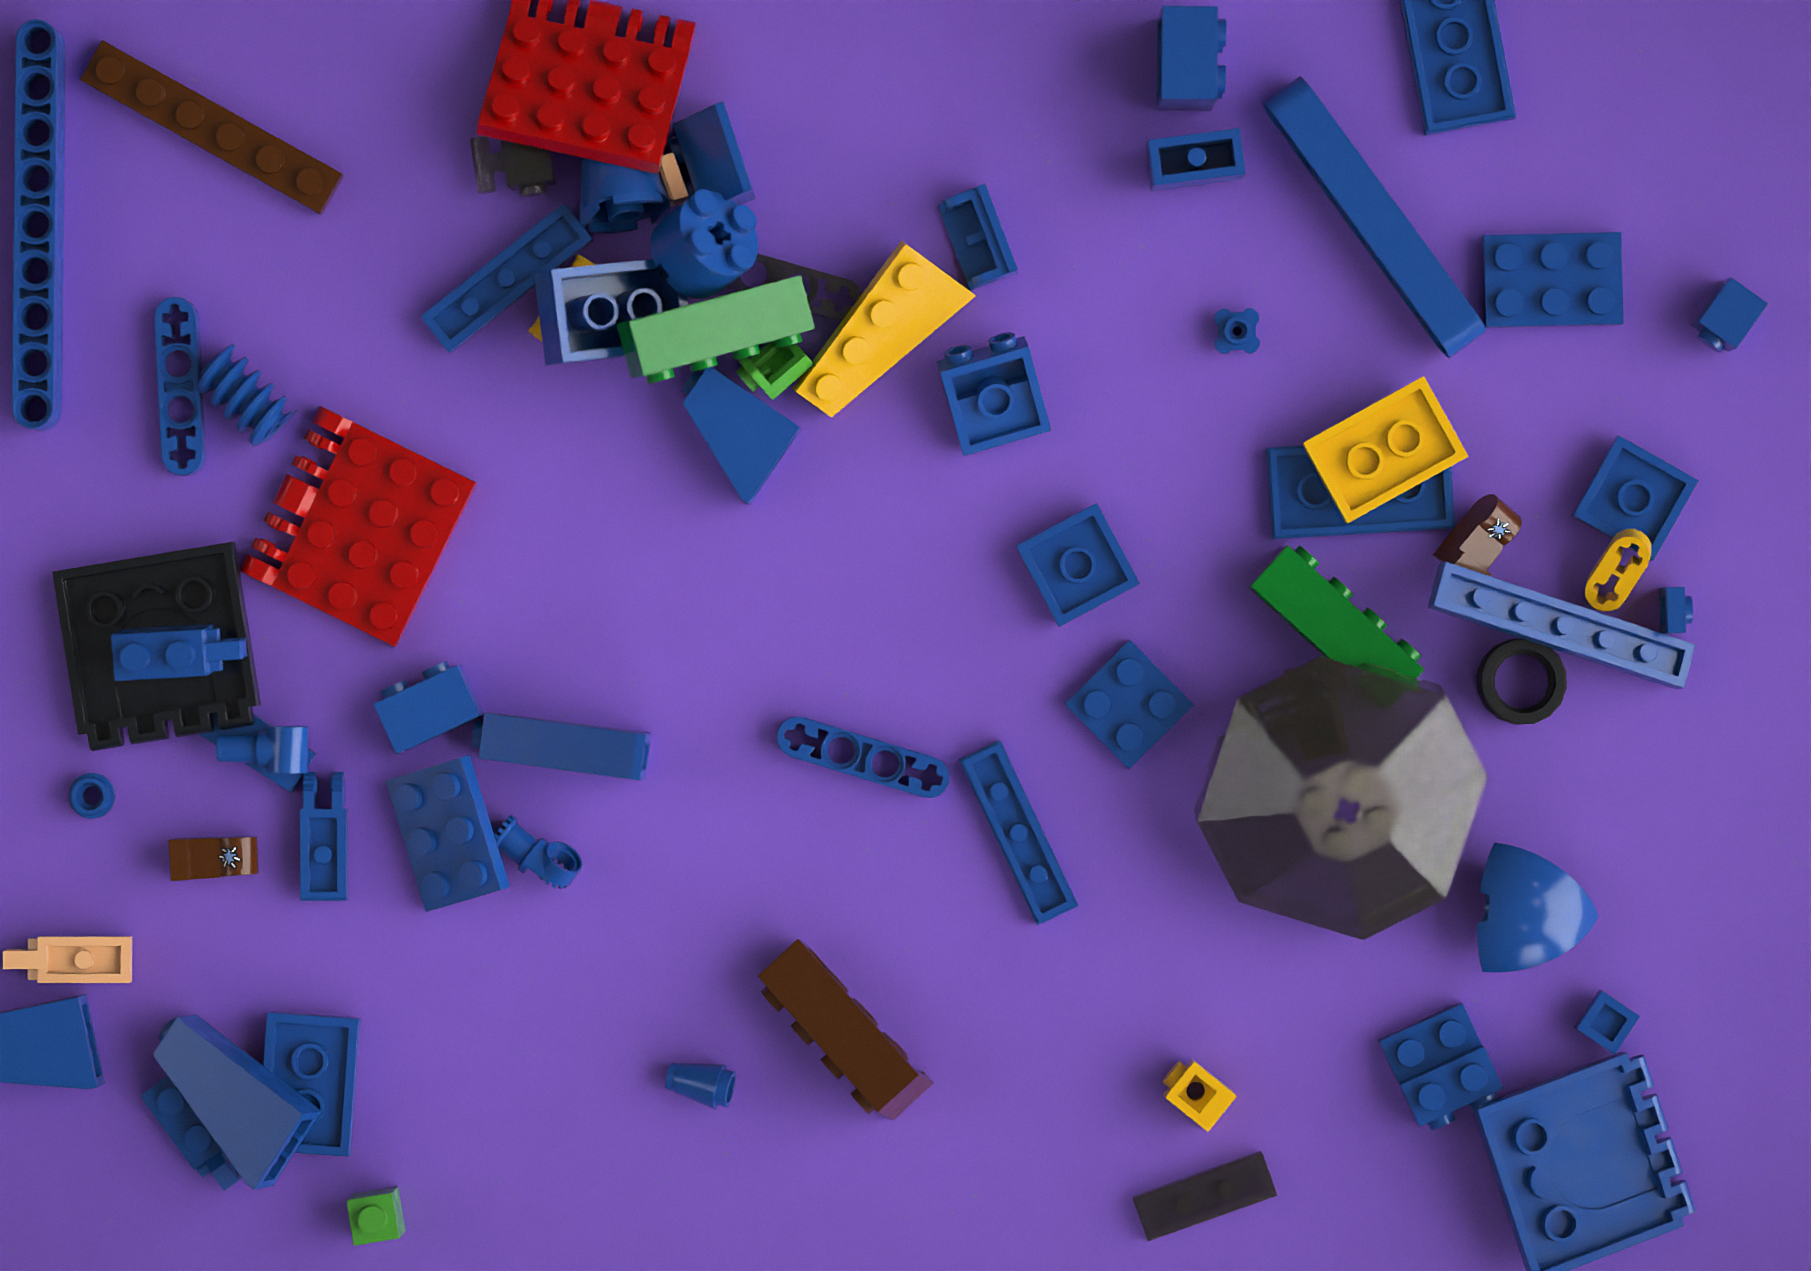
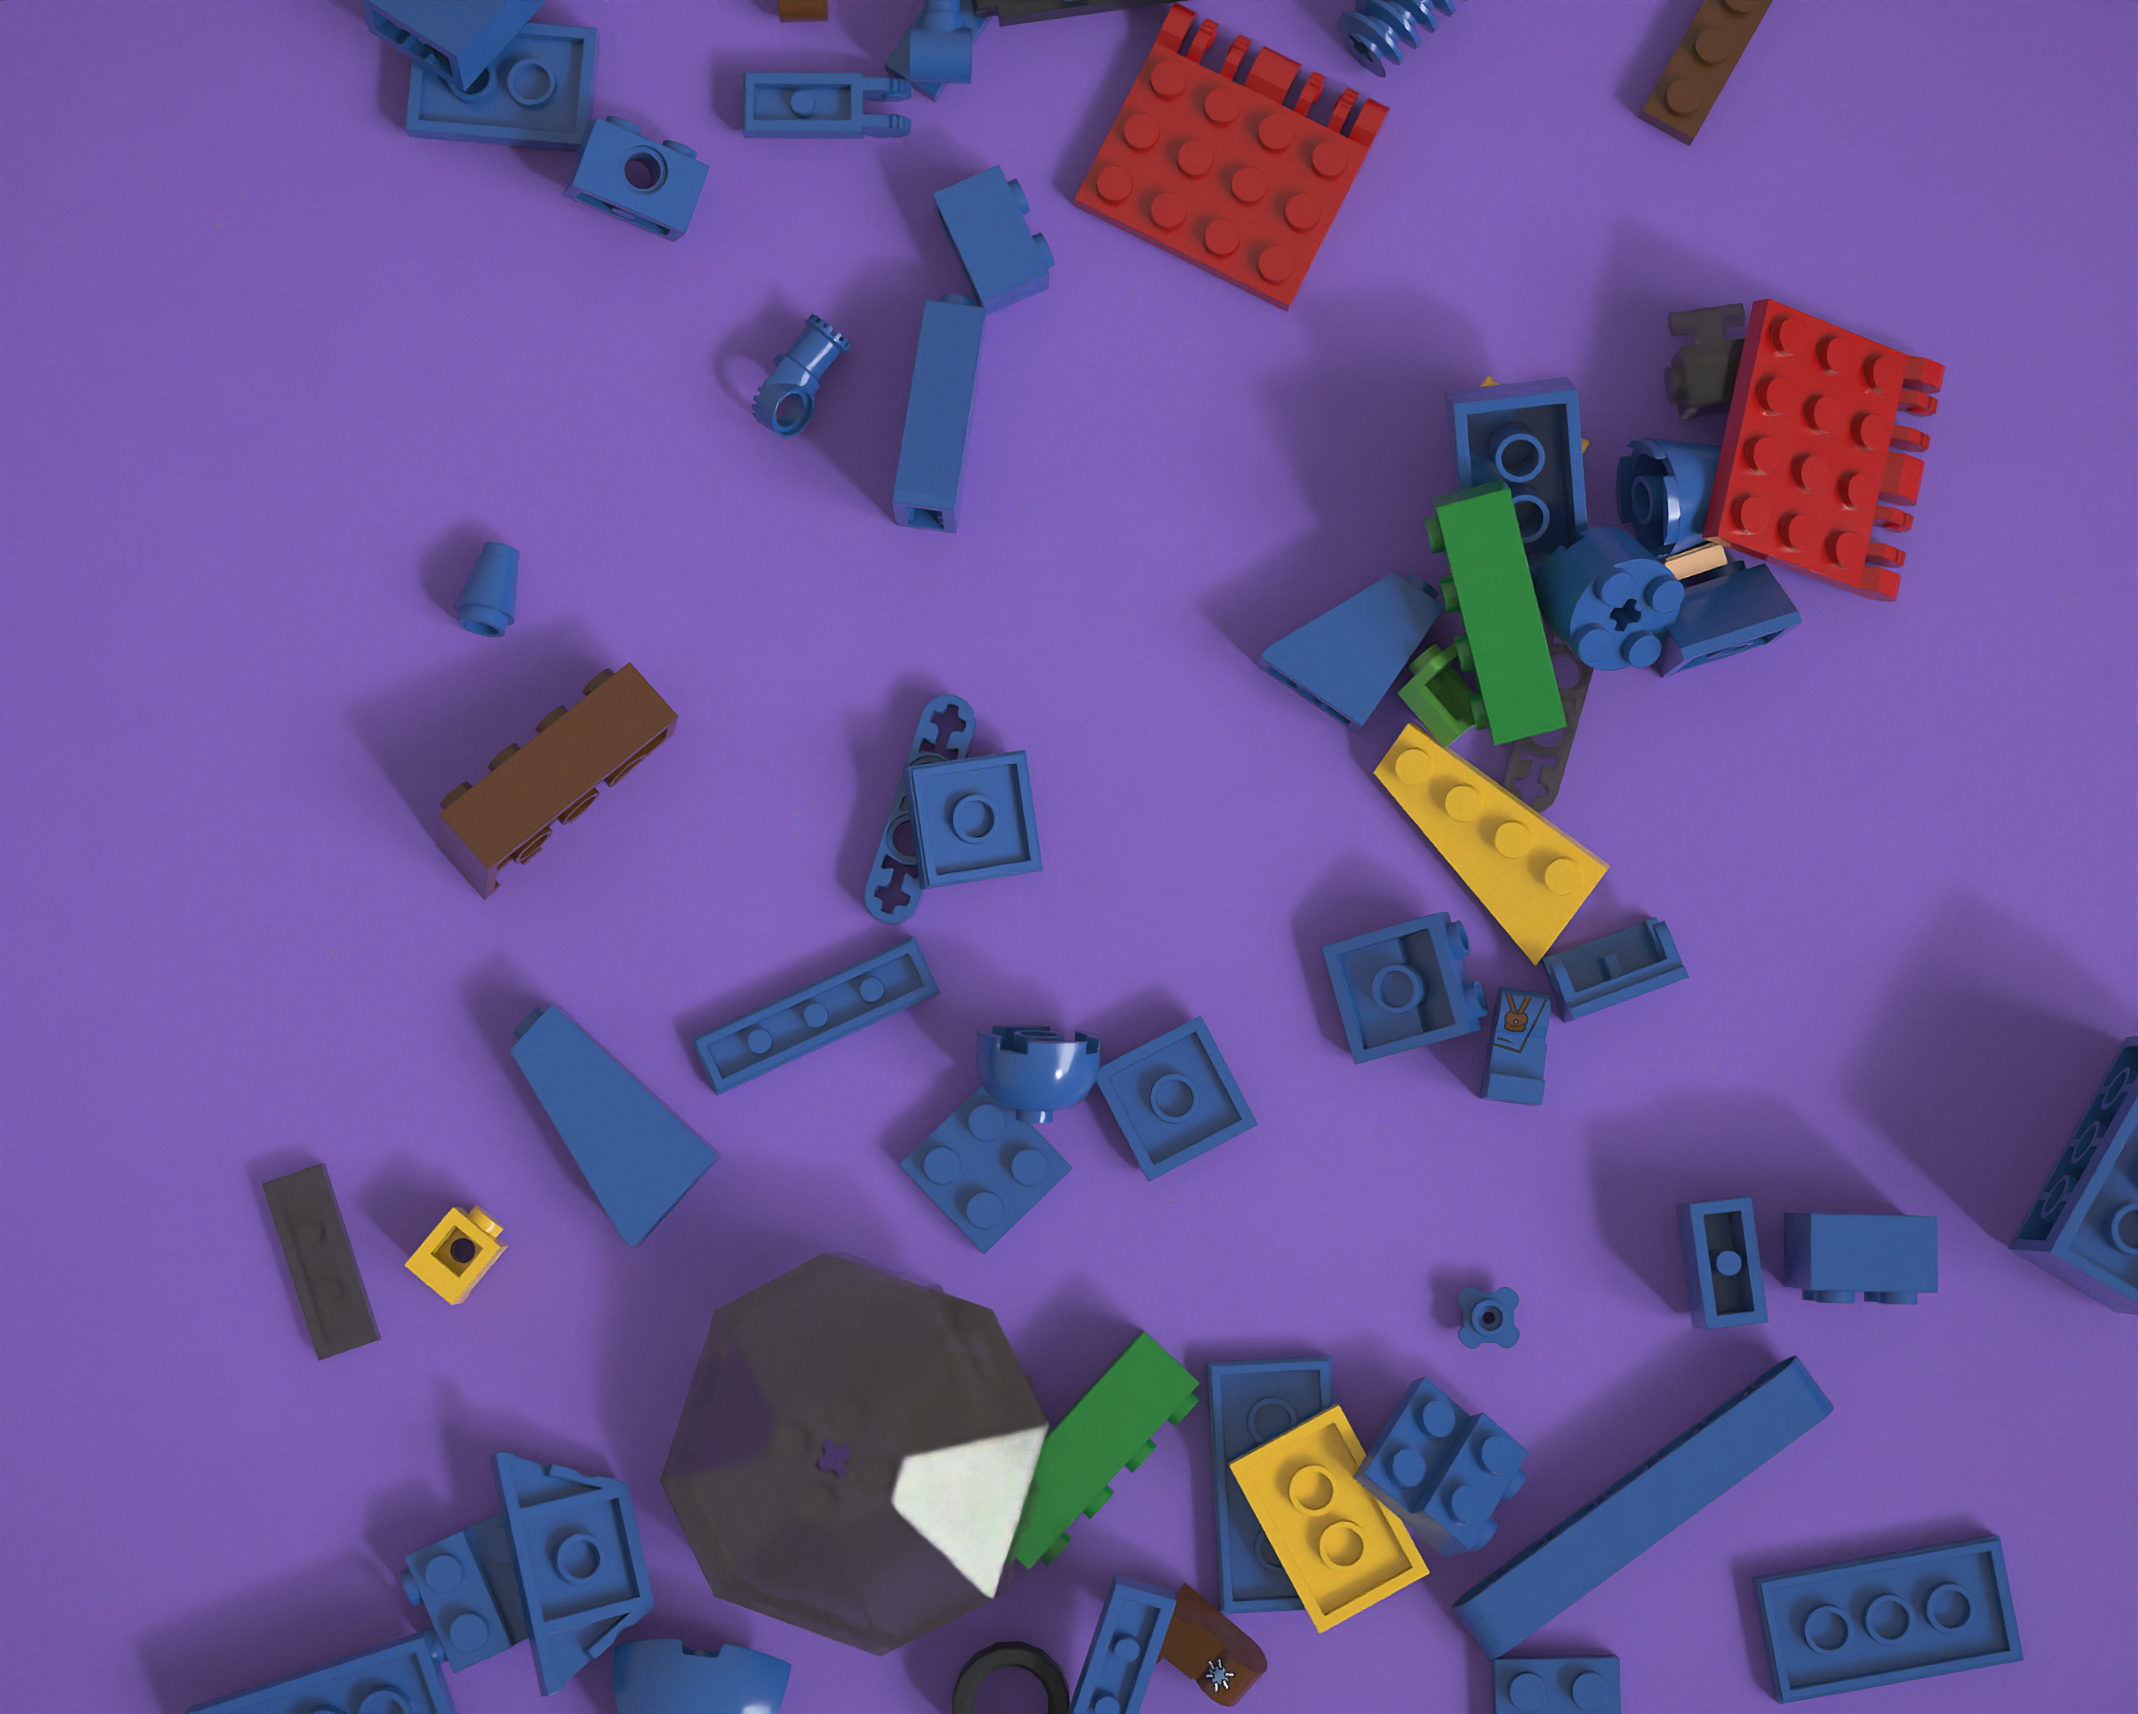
camera: 85 degrees right, 5 degrees down
(376, 1216) = (325, 163): bright green brick -> none
(385, 1006) = (601, 183): none -> blue brick
(447, 833) = (827, 262): blue plate -> none
(506, 278) = (1556, 346): blue plate -> none
(871, 717) = (973, 819): none -> blue tile
(1037, 309) = (1517, 1048): none -> blue leg
(1057, 667) = (1036, 1068): none -> blue cylinder
(1102, 980) = (615, 1127): none -> blue slope
(1348, 366) = (1442, 1469): none -> blue plate
(1421, 1004) = (572, 1562): none -> blue wing

